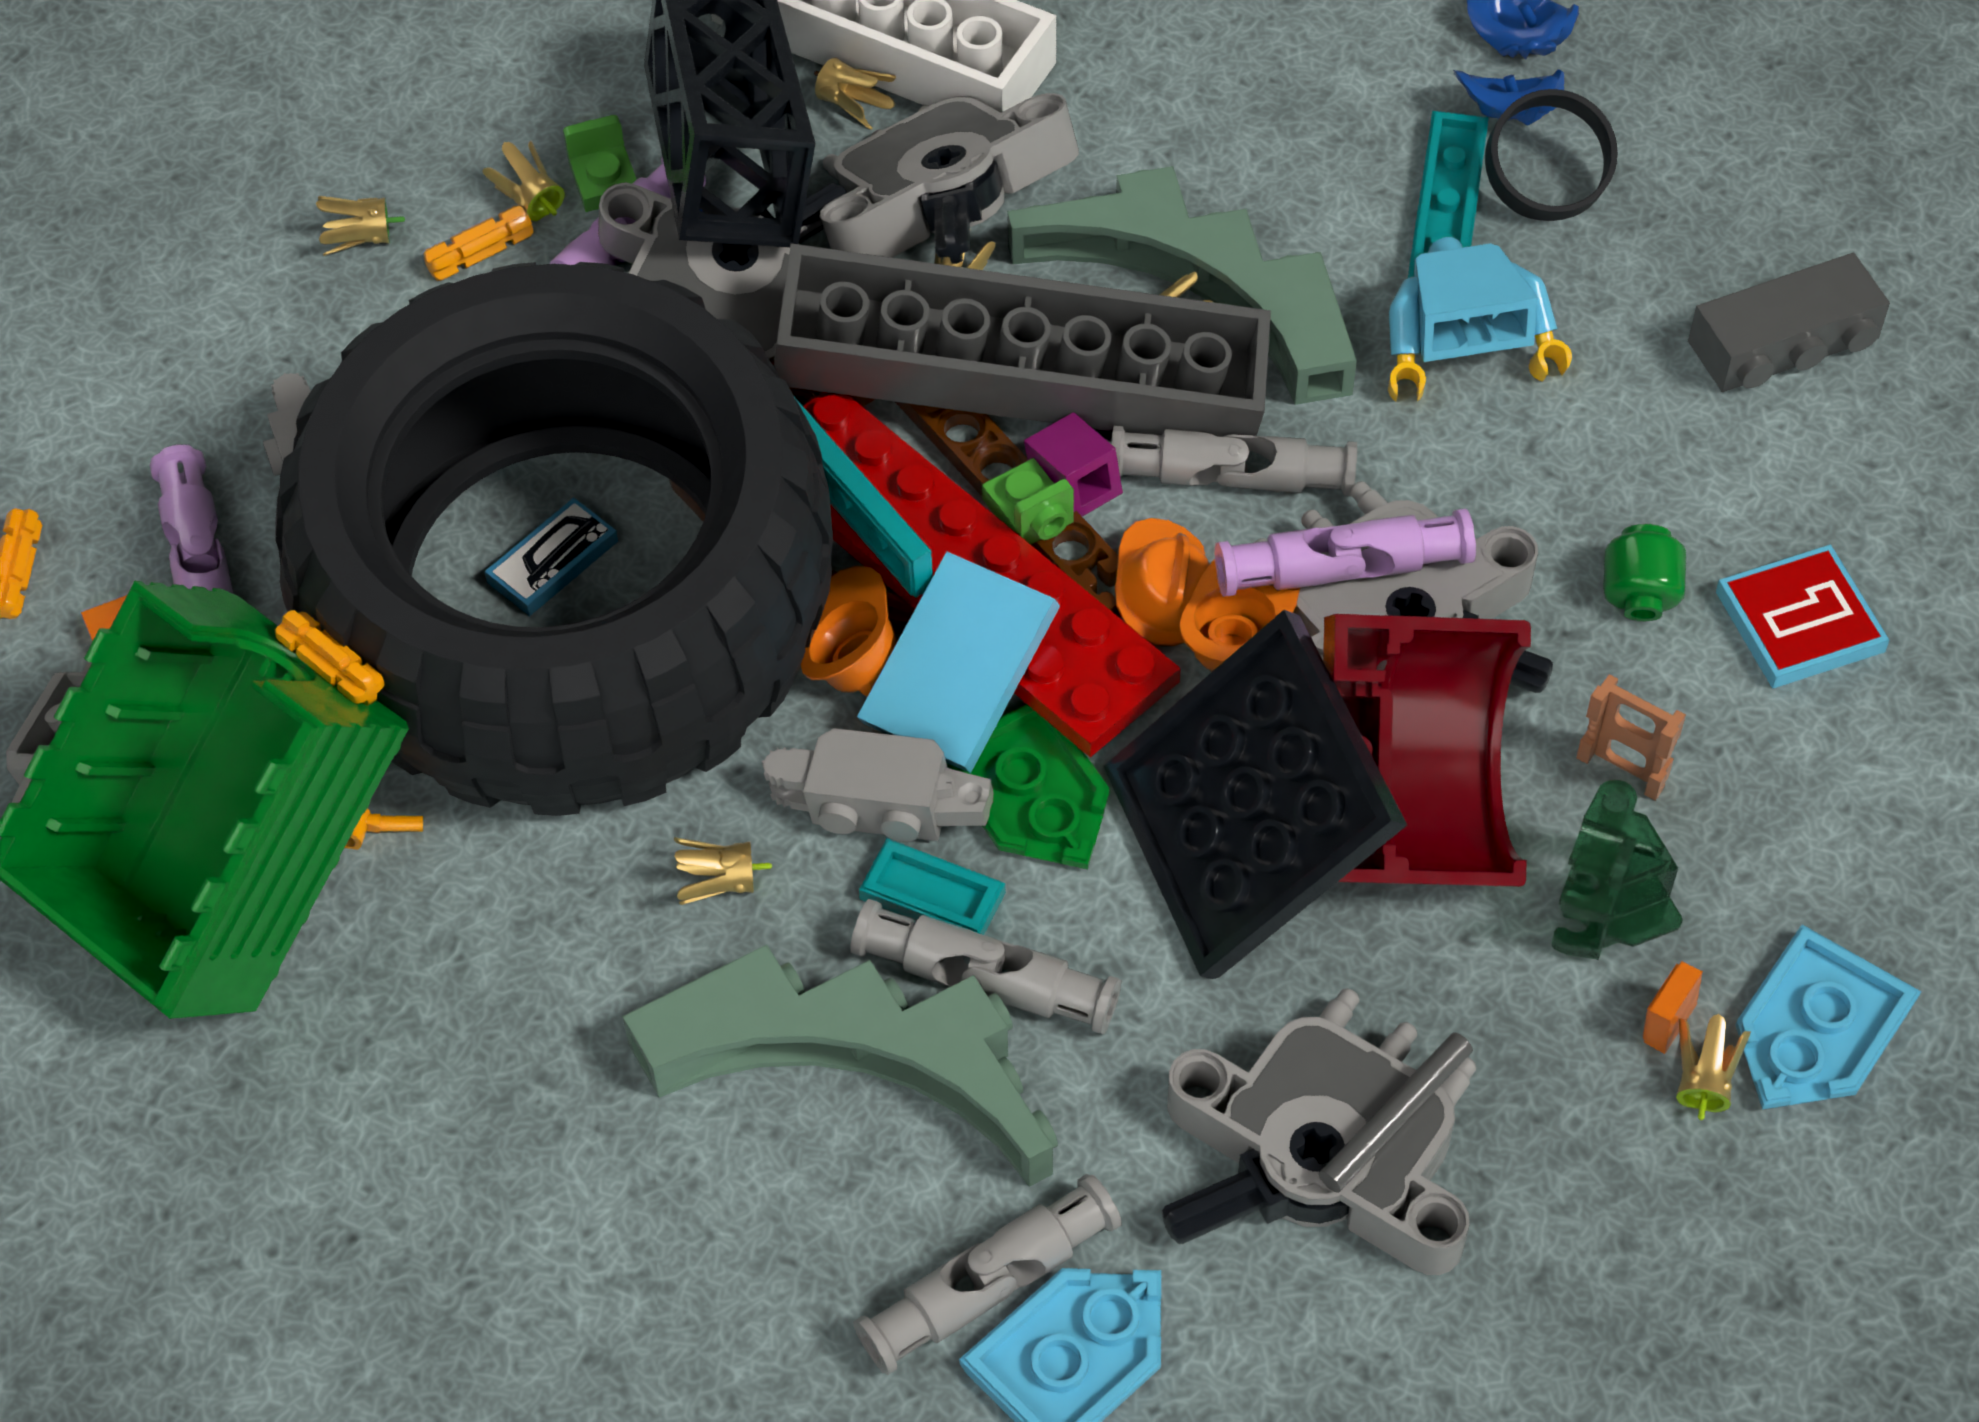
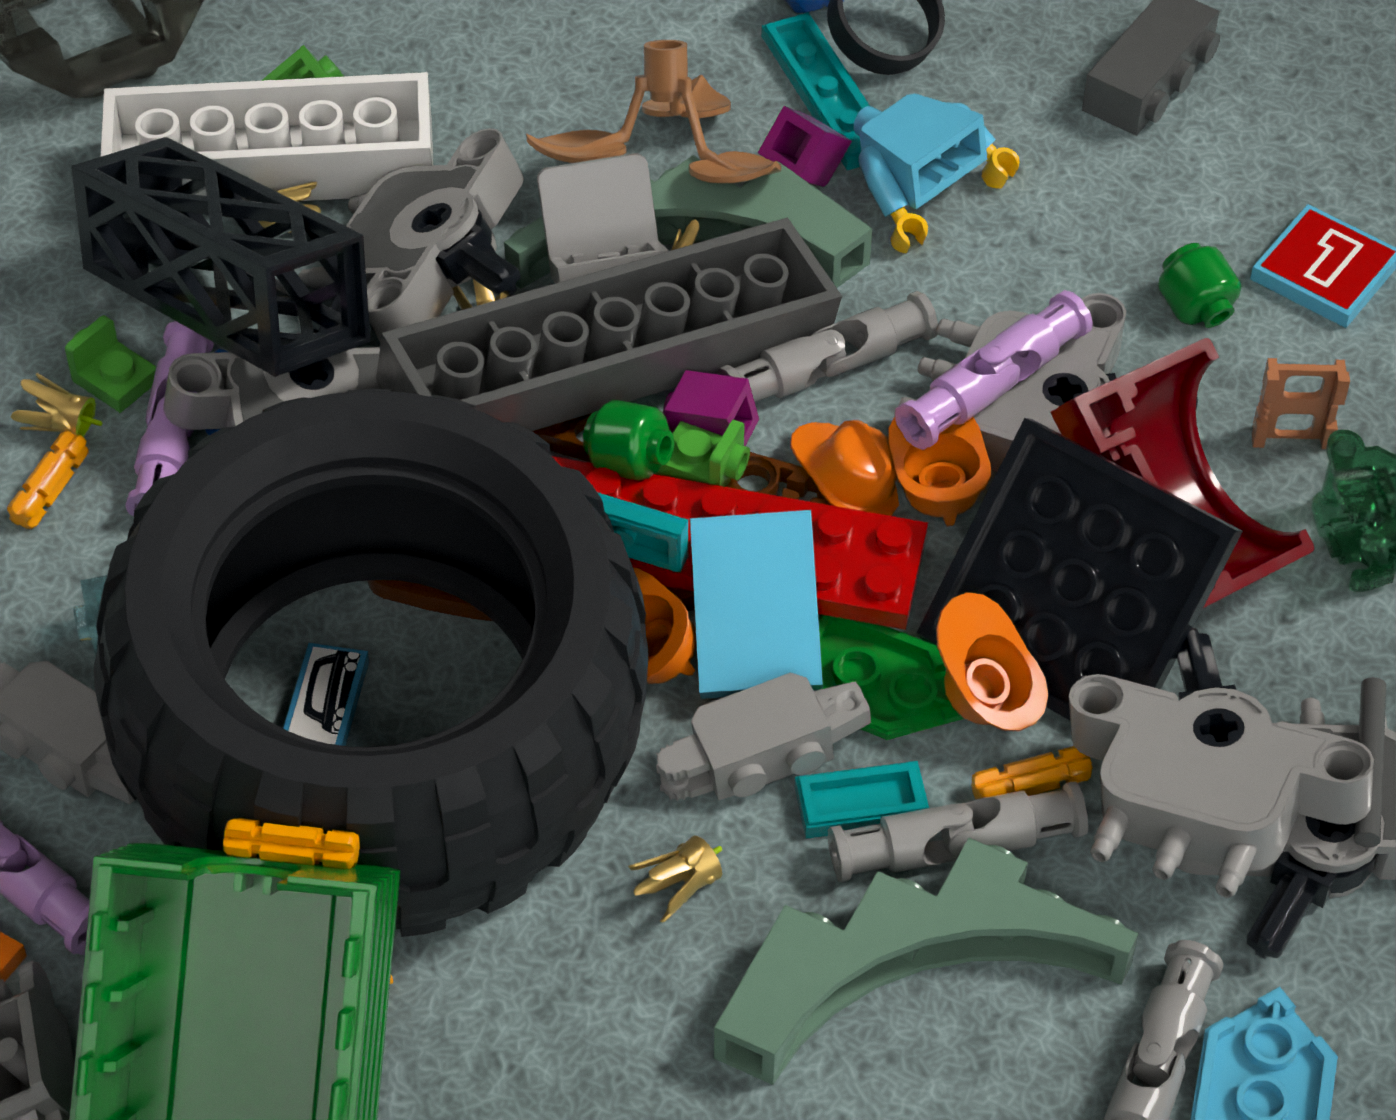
camera: 35 degrees left, 5 degrees down
(964, 451) = (628, 439): none -> green head
(1099, 227) = (597, 215): none -> light grey bracket
(1101, 953) = (1033, 774): none -> light orange axle
(1118, 827) = (988, 665): none -> orange piece
(1223, 1035) = (1209, 770): none -> light grey piece
(1254, 126) = (670, 95): none -> medium nougat plant
(1363, 249) = (805, 146): none -> magenta brick

